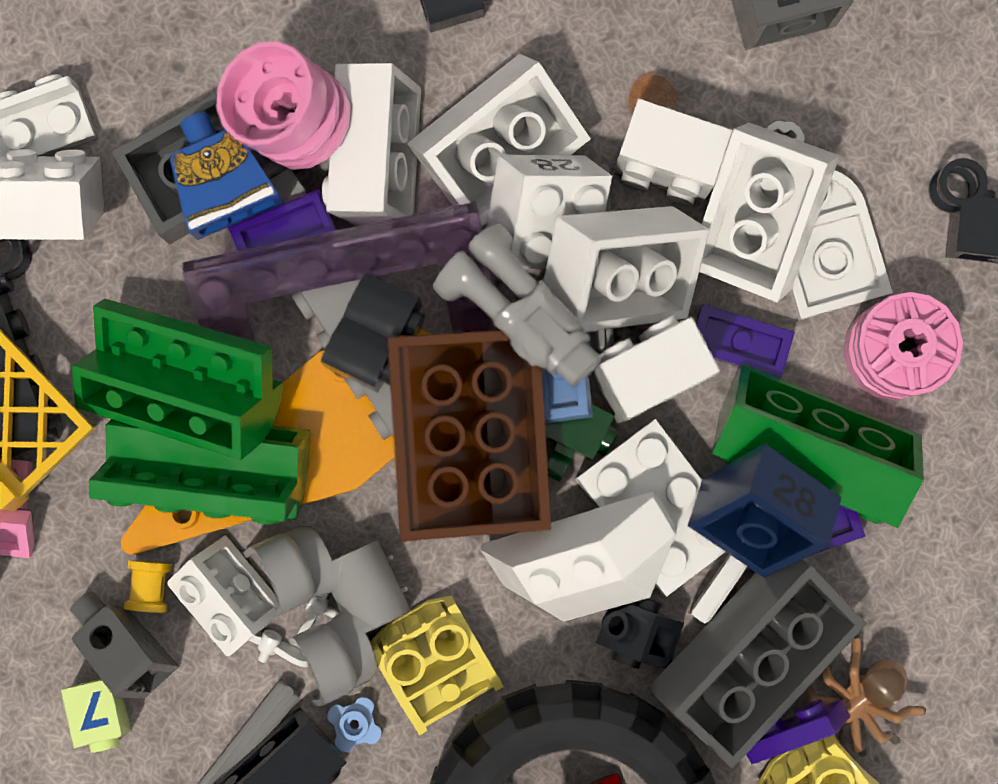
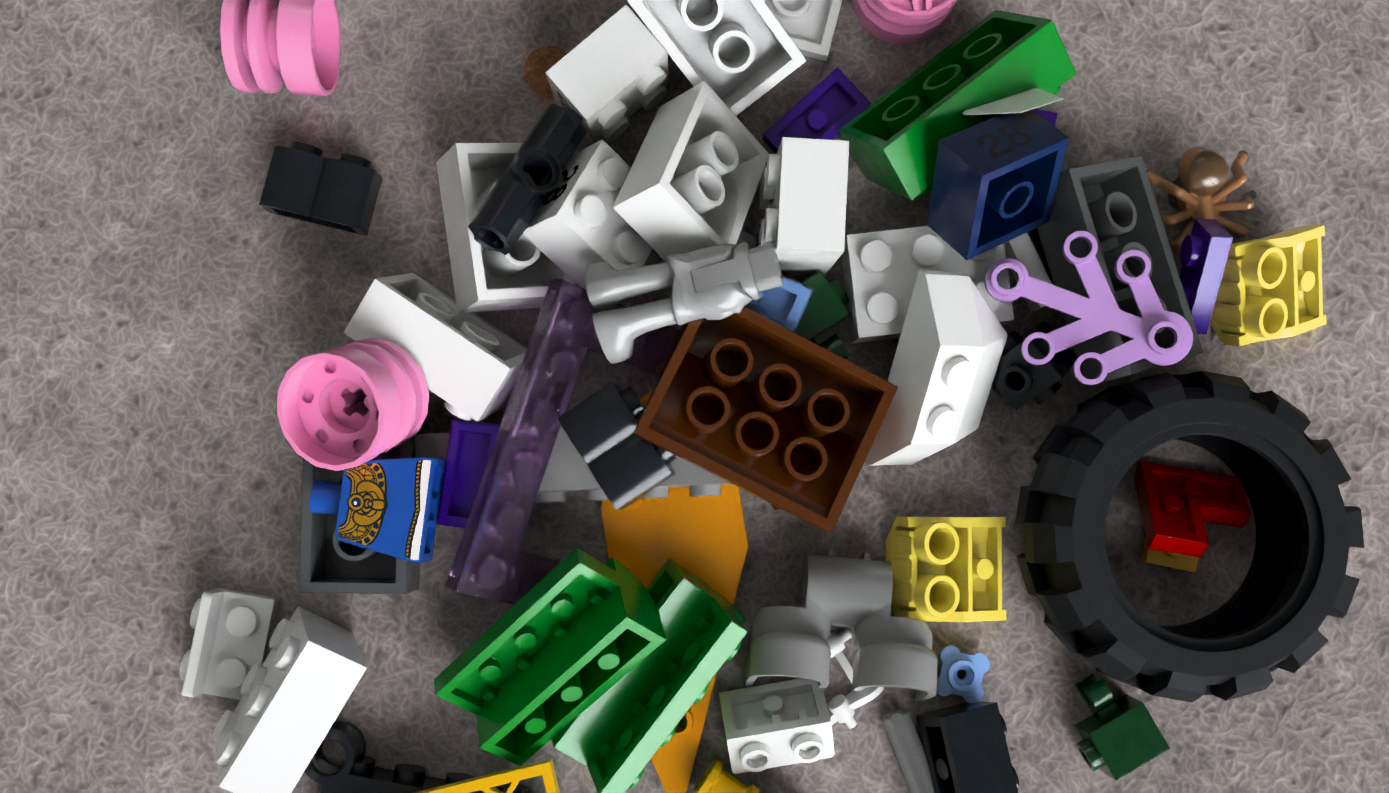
camera: 60 degrees left, 0 degrees up
(519, 135) = (514, 198): none -> black piece
(705, 656) = (1097, 312): none -> lavender plant
(837, 491) = (1016, 103): none -> white sticker

